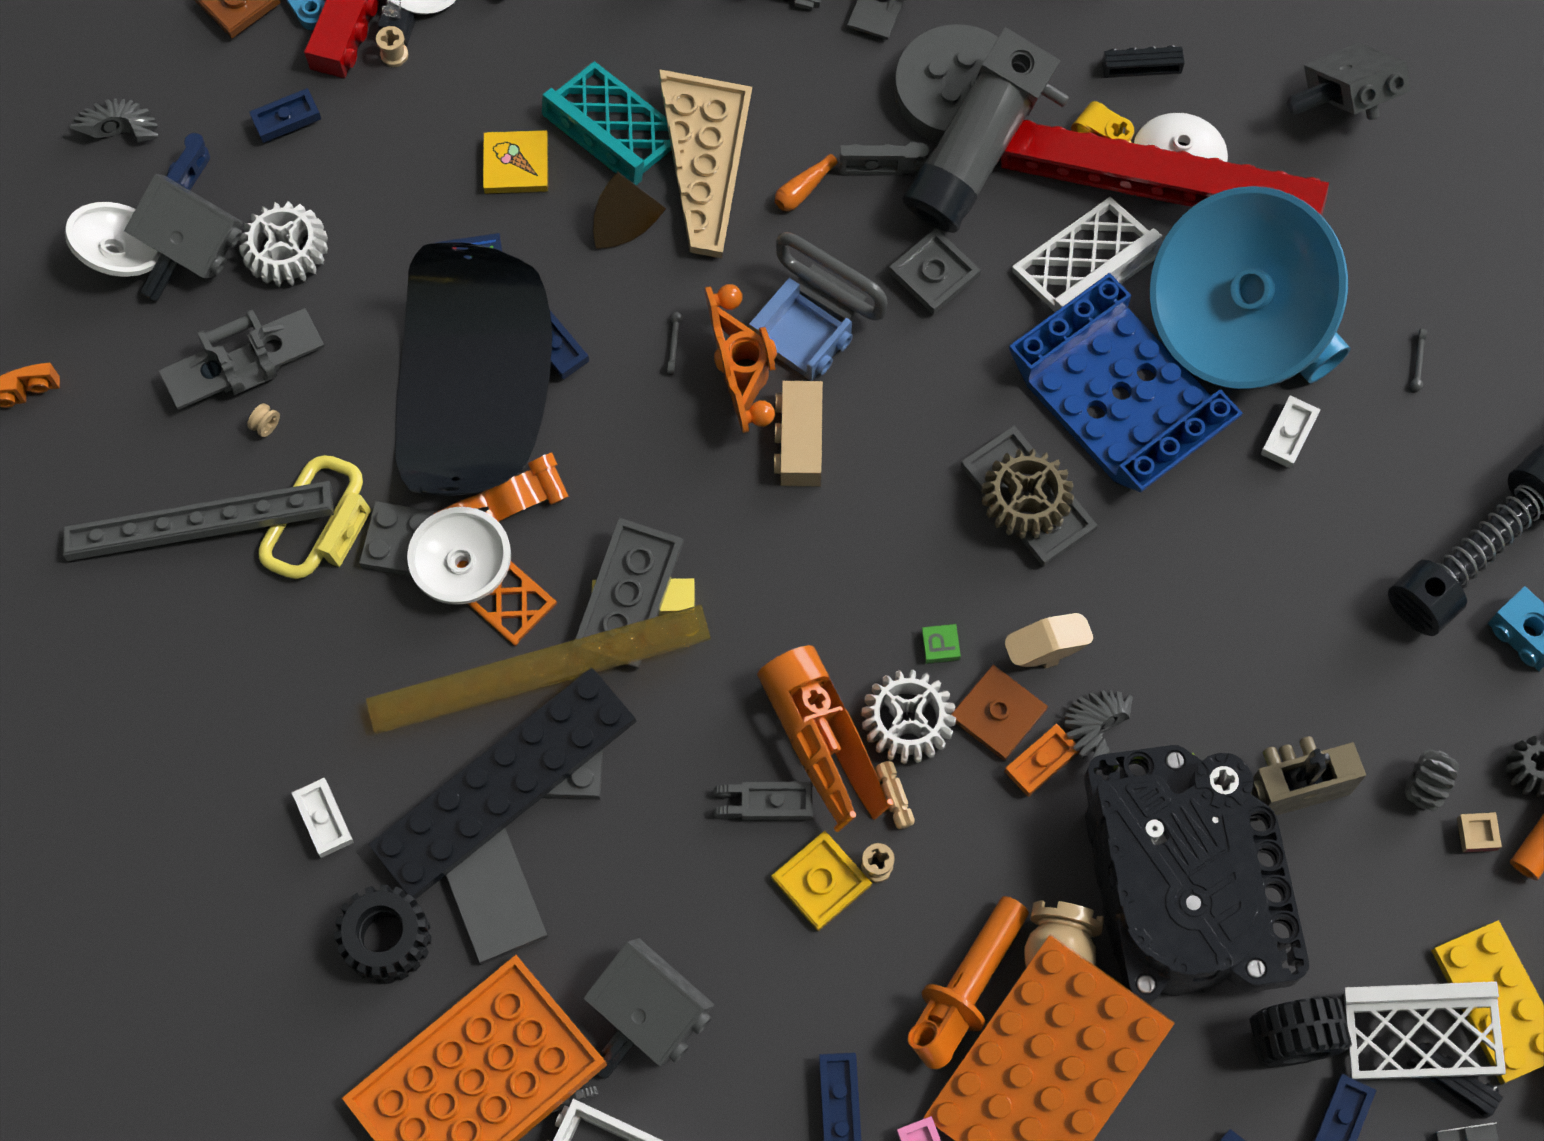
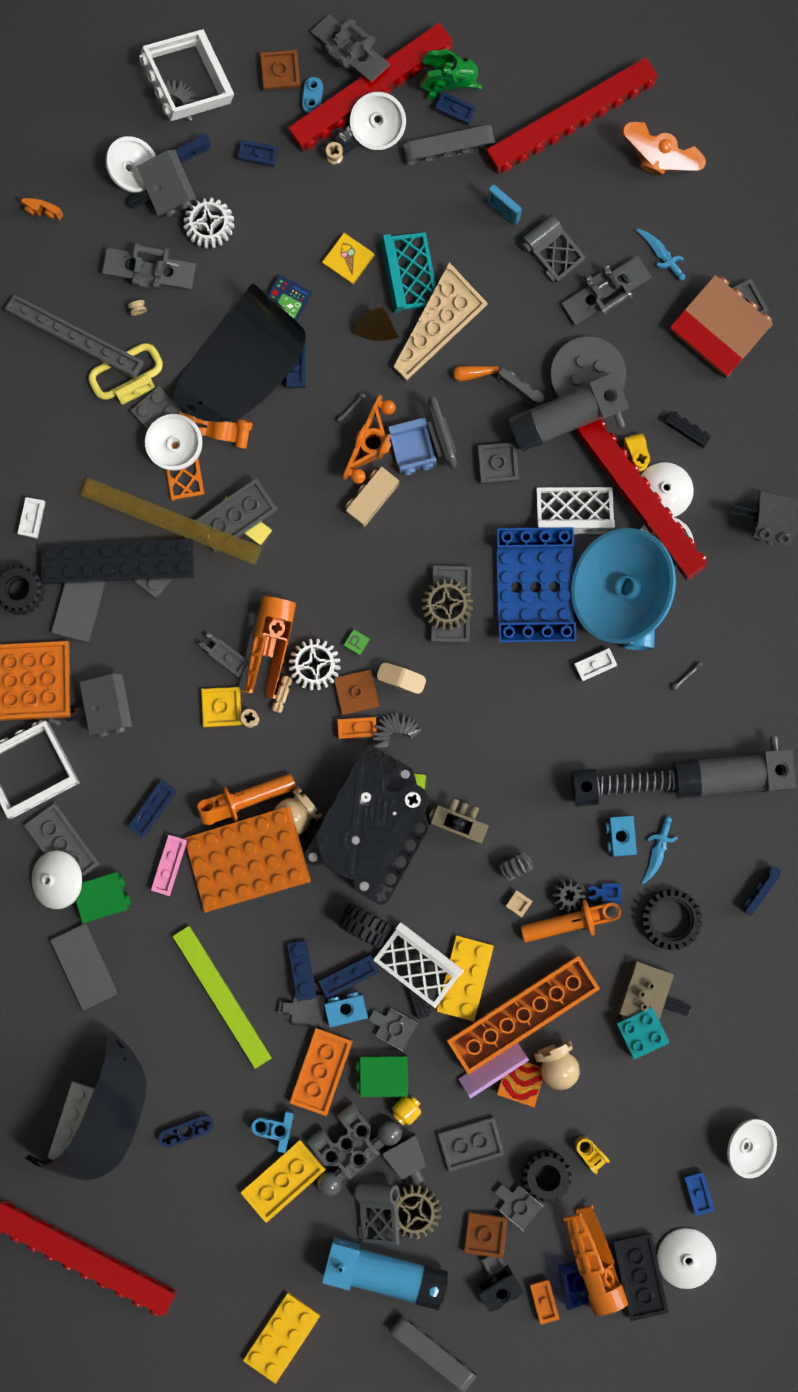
camera: 35 degrees right, 15 degrees up
(125, 45) = (210, 61): none -> white window

